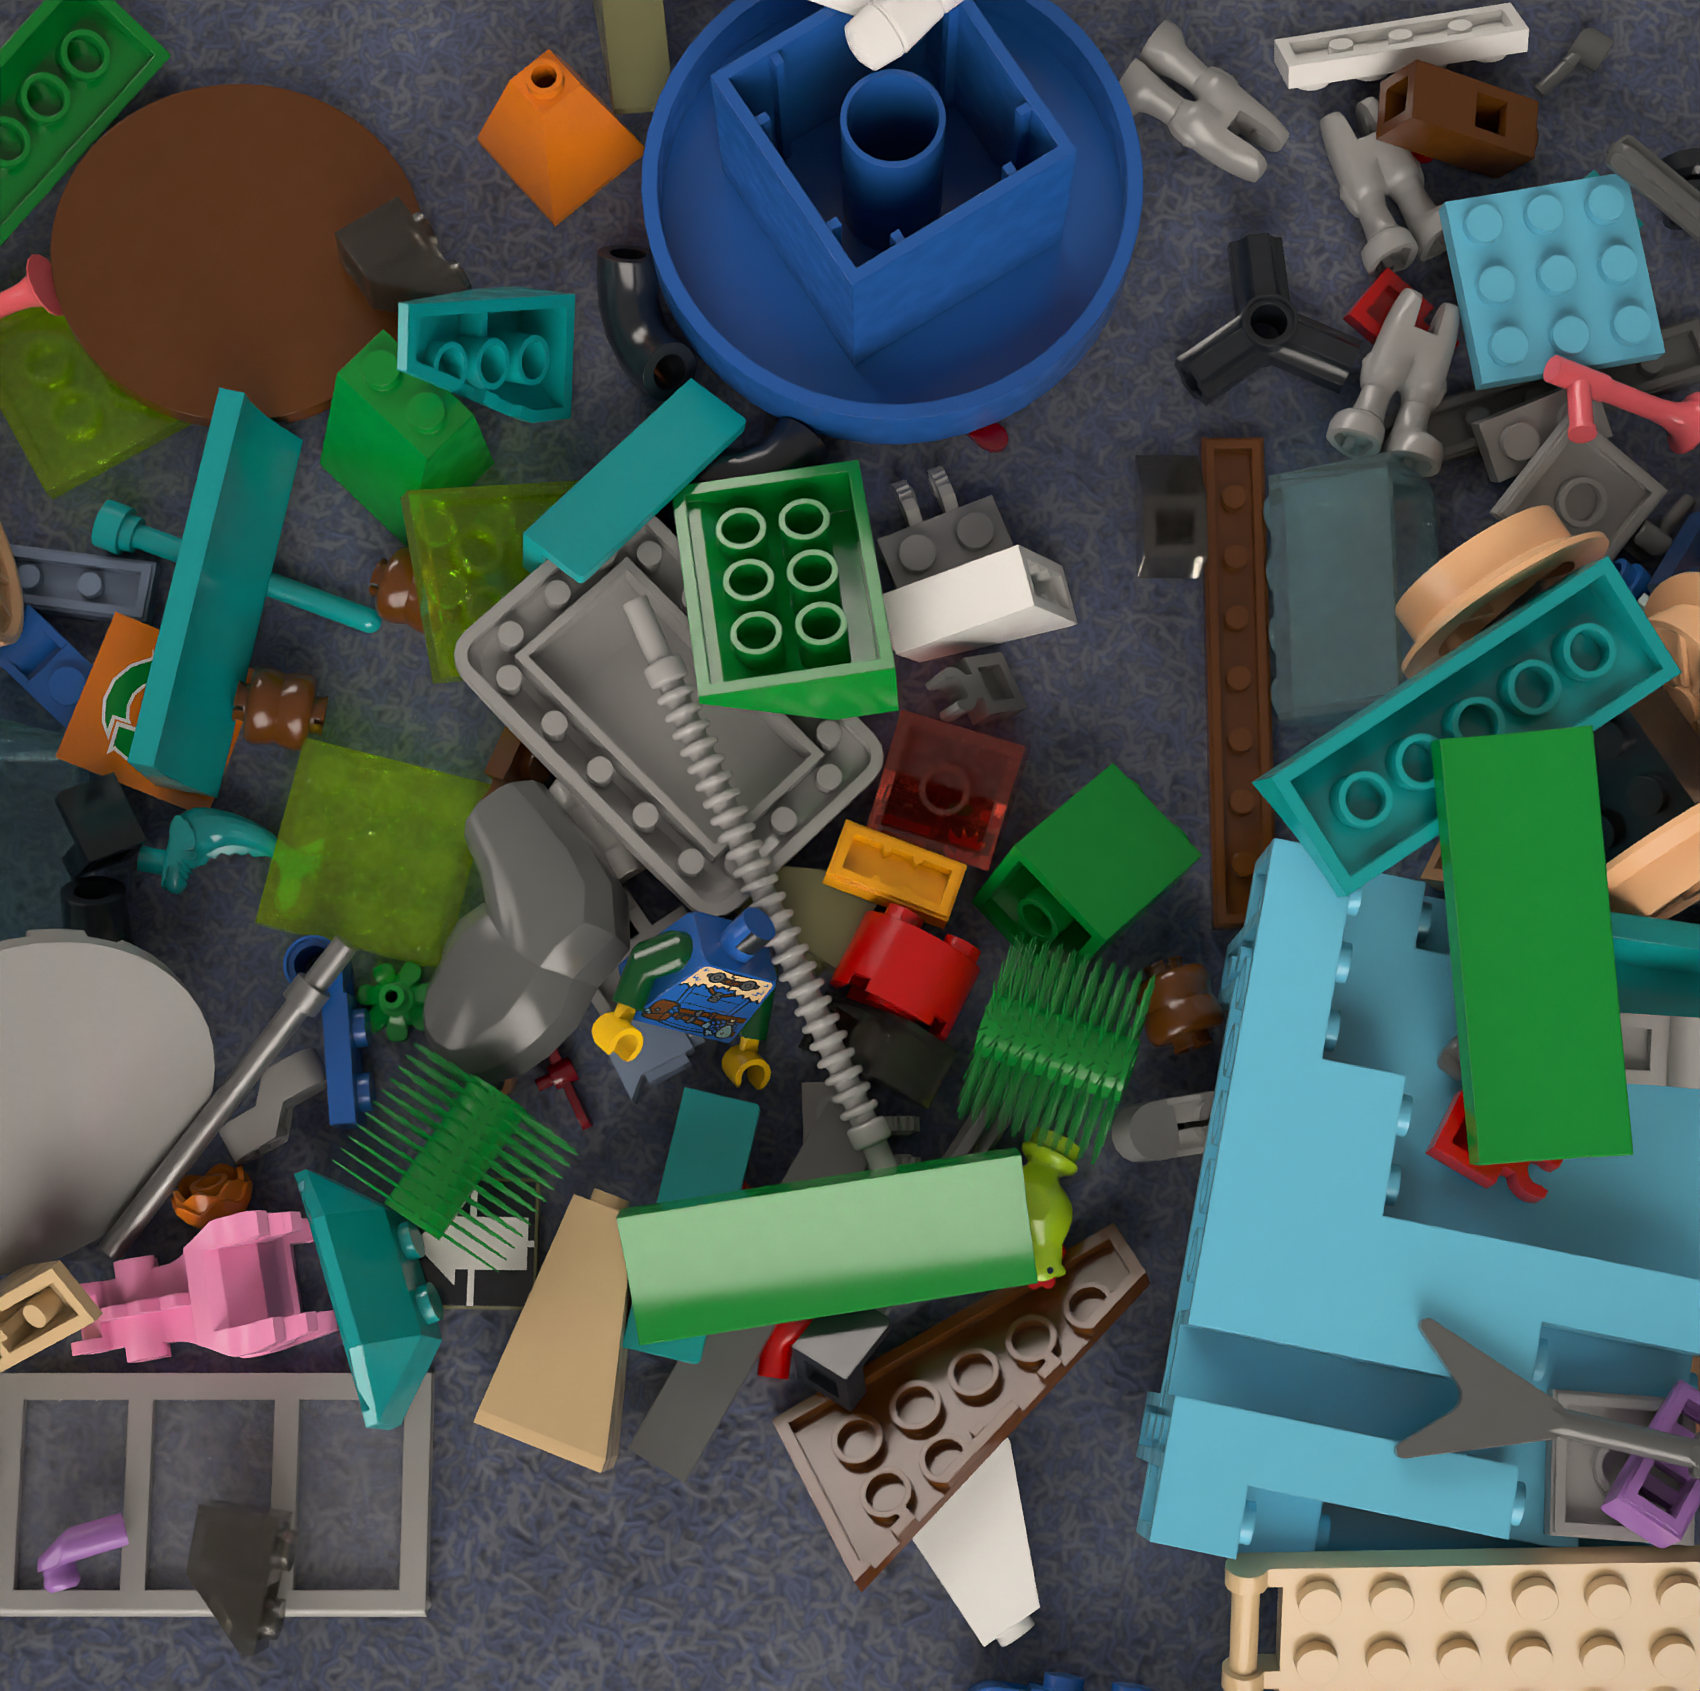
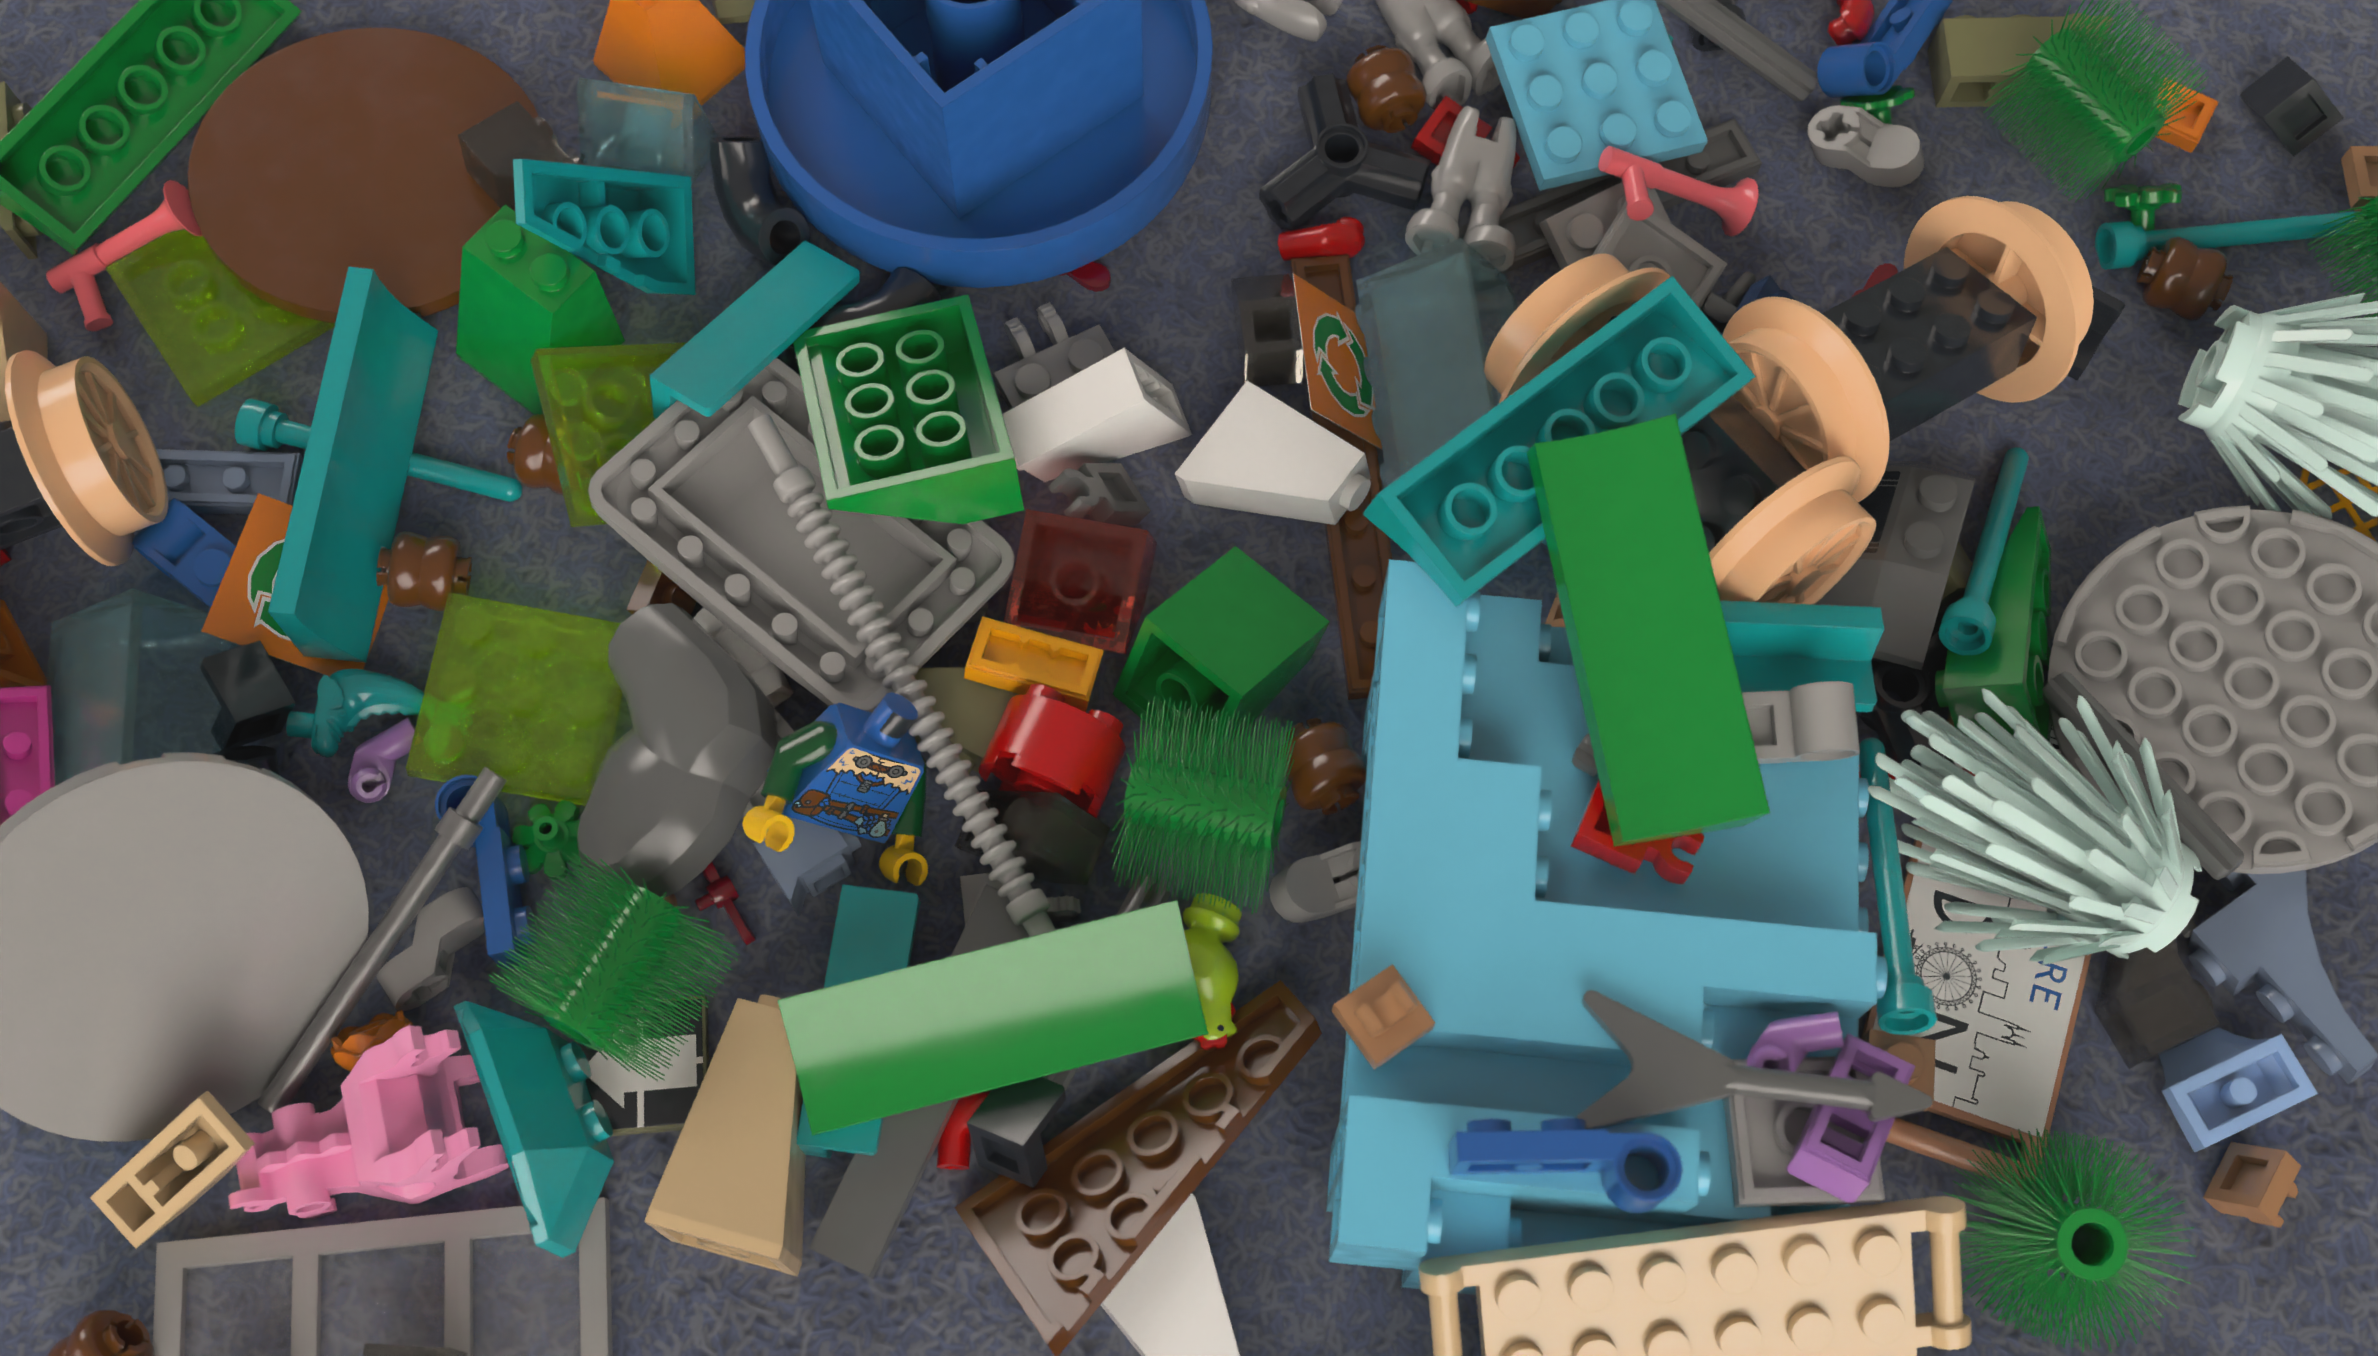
camera: 10 degrees left, 10 degrees down
(223, 903) = (376, 760): none -> medium lavender arm
(527, 240) = (642, 129): none -> clear light blue slope
(1162, 673) = (1274, 463): none -> white slope
(1218, 1323) = (1383, 1016): none -> medium nougat tile
(1236, 576) = (1334, 361): none -> orange sticker
(1255, 420) = (1330, 239): none -> red arm
(1323, 251) = (1386, 89): none -> reddish brown piece
(1387, 1477) = (1568, 1147): none -> blue plate
(1619, 1381) = (1790, 1039): none -> medium lavender arm

